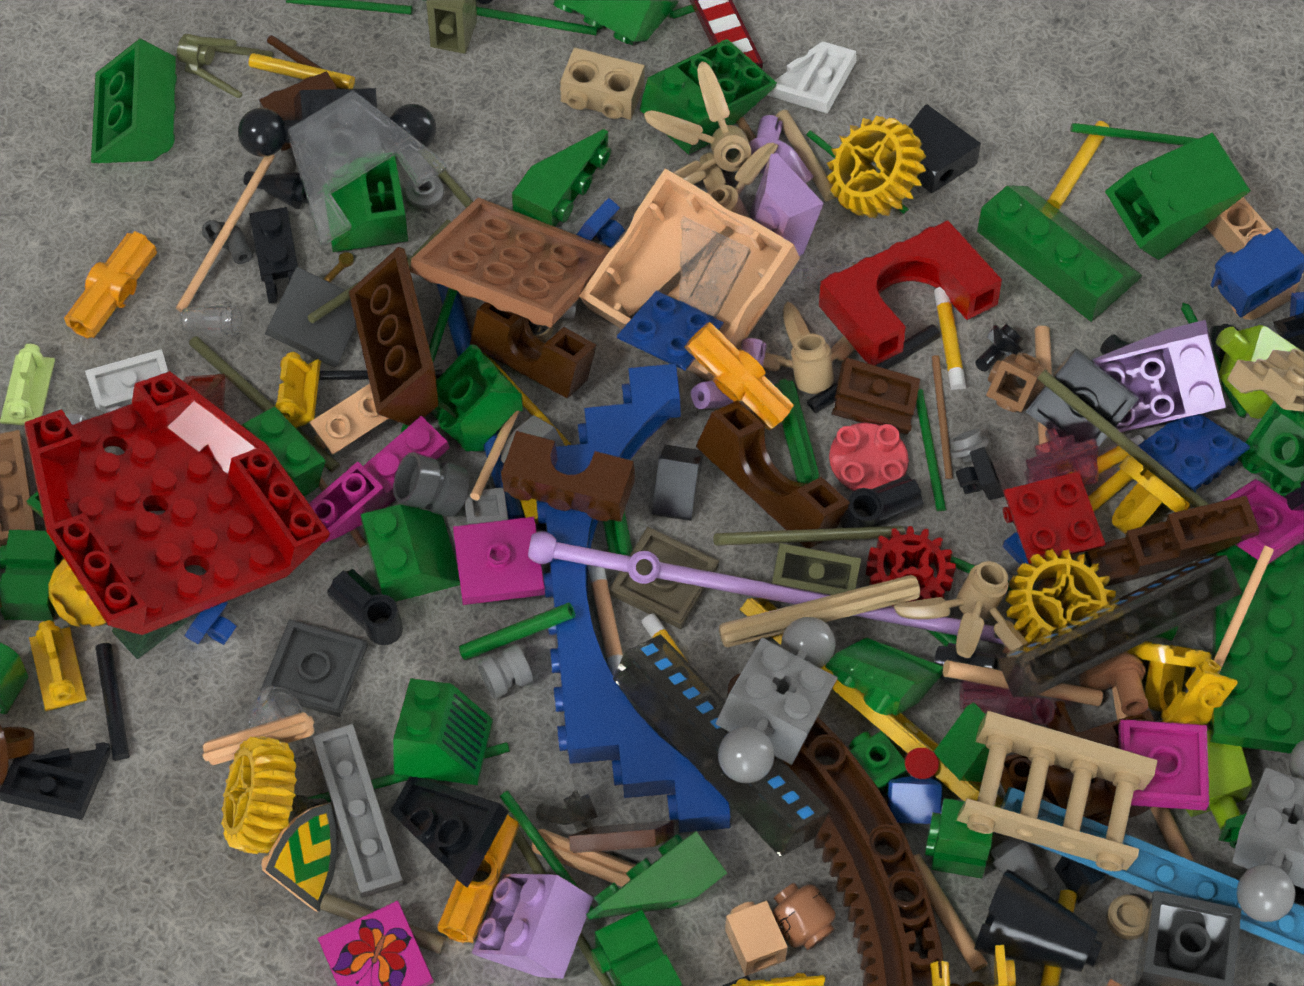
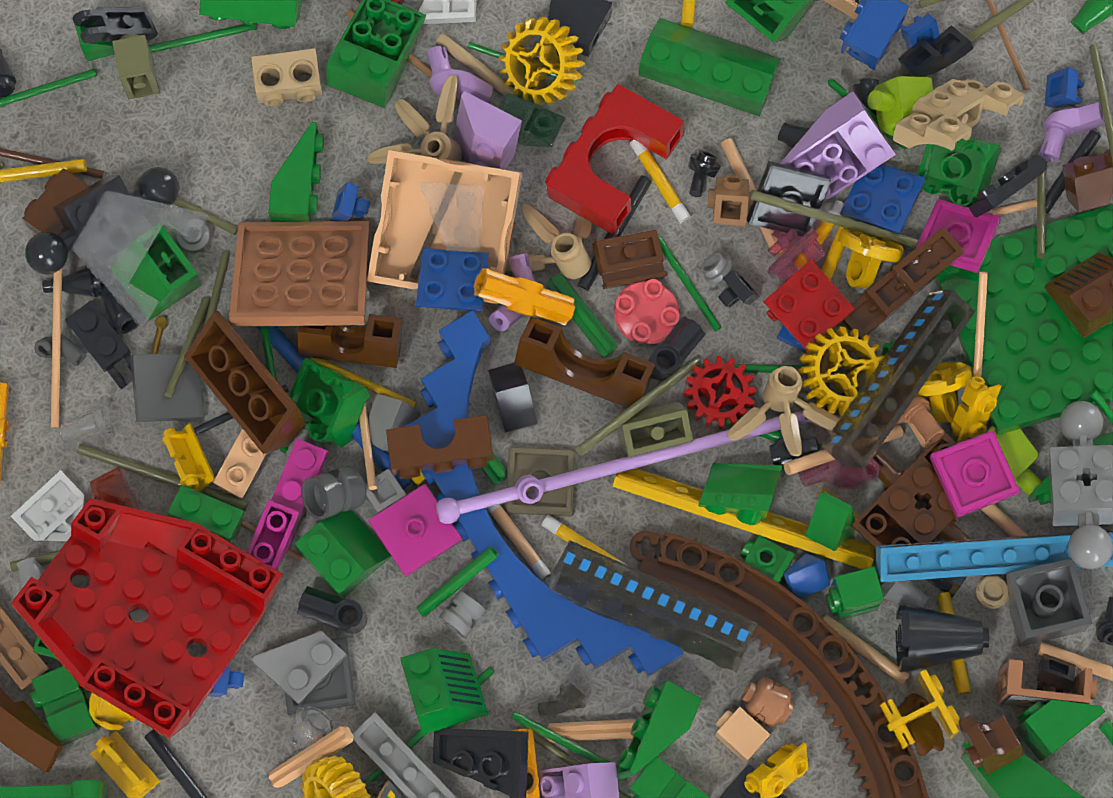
camera: 25 degrees left, 15 degrees up
(302, 644) = (301, 664): none -> light grey wing
(305, 232) = (117, 314): none -> black cone
(621, 836) = (615, 708): reddish brown tile -> none
(721, 141) = (413, 88): tan plant -> none
(776, 700) = (682, 558): light grey brick -> none
(825, 609) = (674, 464): tan axle -> none
(838, 223) = (538, 124): none -> clear green slope
(921, 763) = (801, 549): red sticker -> none
(942, 417) = (684, 250): medium nougat axle -> none
(1086, 761) = (925, 506): tan fence -> none

